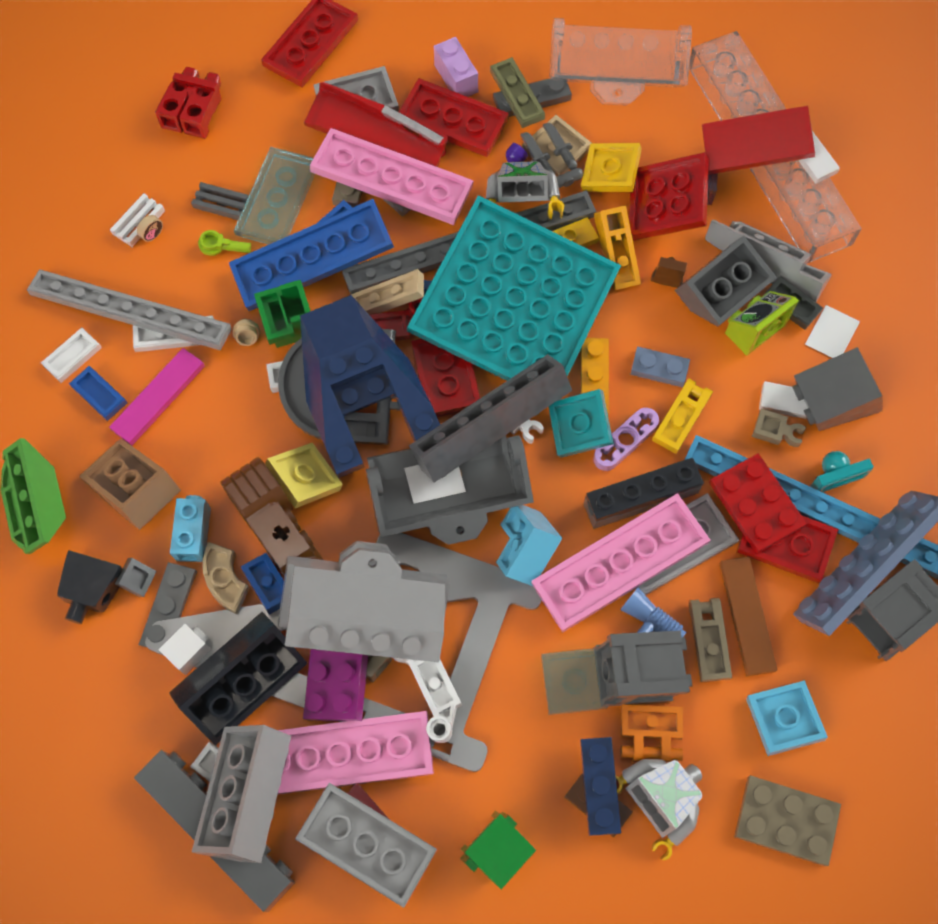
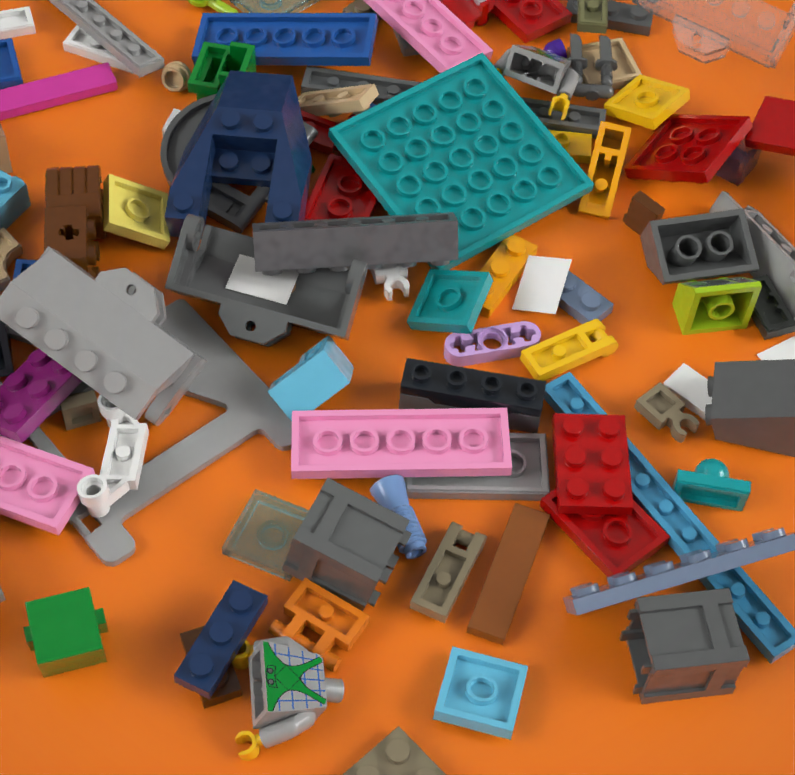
camera: 25 degrees right, 15 degrees down
(632, 370) = (542, 284): none -> white sticker

